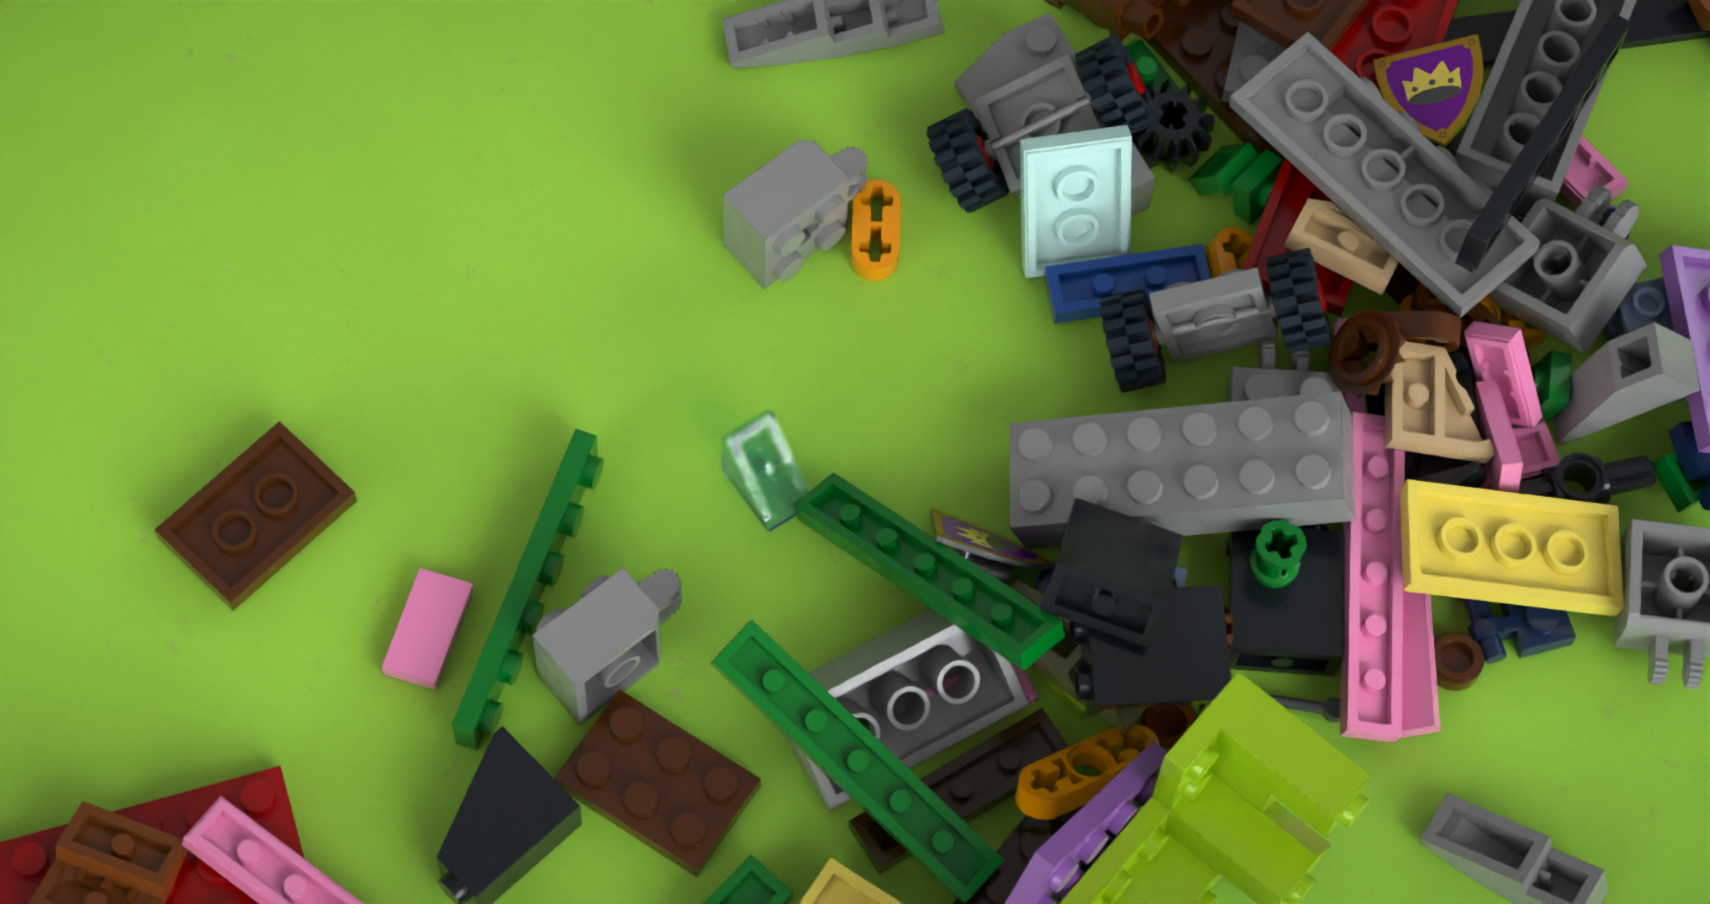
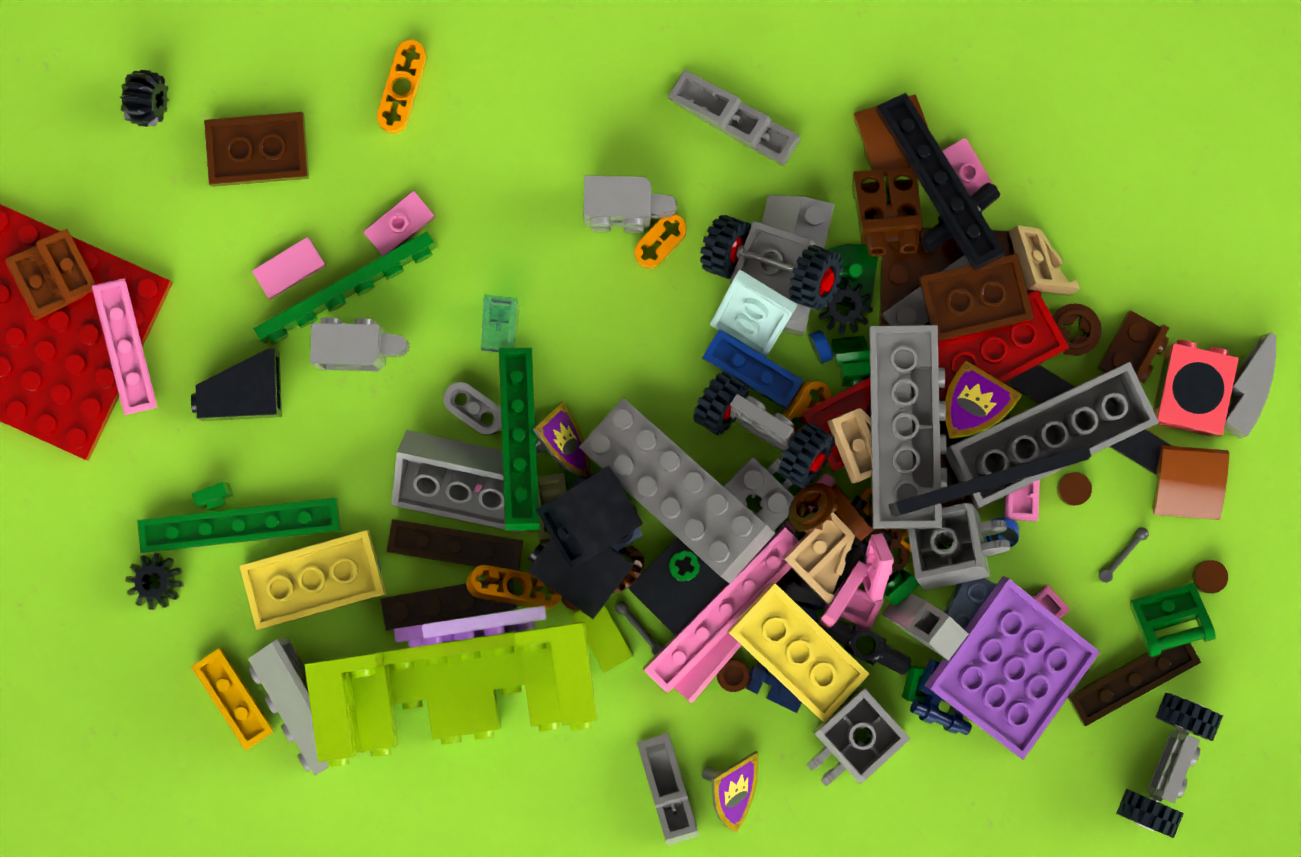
camera: 40 degrees right, 20 degrees up
(50, 560) = (144, 98): none -> black gear
(379, 324) = (416, 66): none -> light orange beam
(526, 463) = (399, 224): none -> bright pink plate
(658, 782) = (328, 427): reddish brown plate -> none
(827, 600) = (474, 409): none -> light grey plate
(857, 761) = (407, 500): green plate -> none
(1184, 193) = (820, 346): none -> blue tile
(1591, 792) = (733, 790): none -> shield
(1630, 121) = (1074, 489): none -> reddish brown tile

